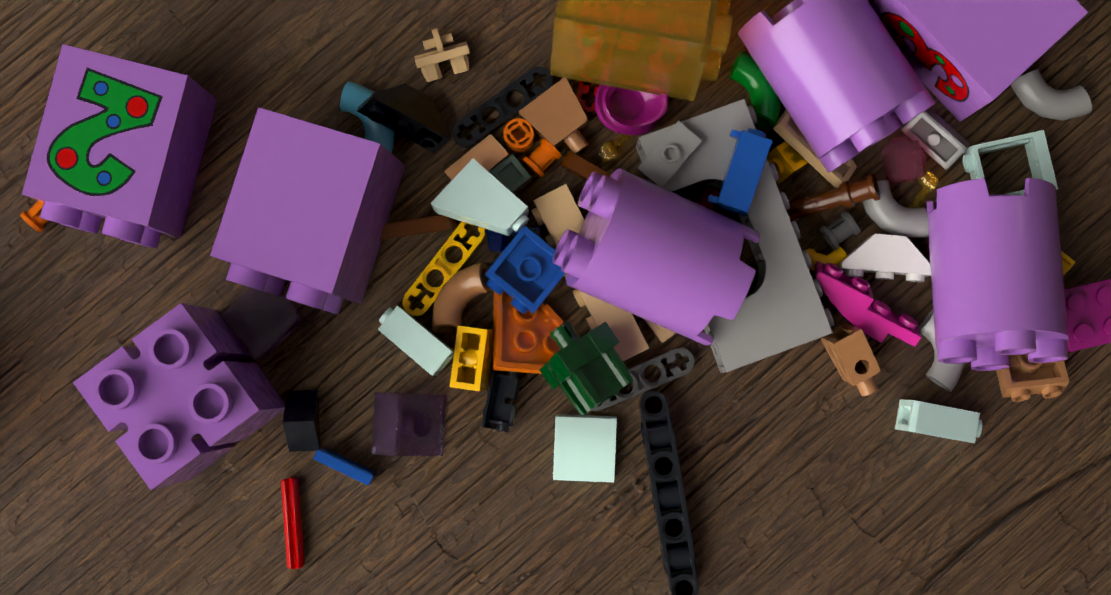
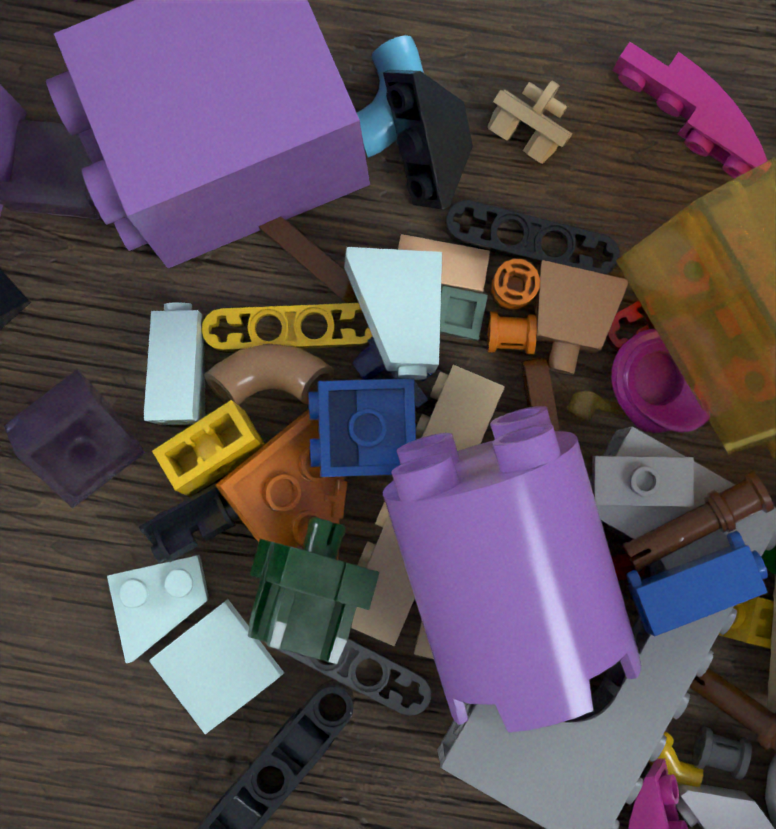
camera: 45 degrees right, 0 degrees up
(525, 452) = (155, 601): none -> light aqua wing
(715, 131) = (719, 512): none -> reddish brown pin

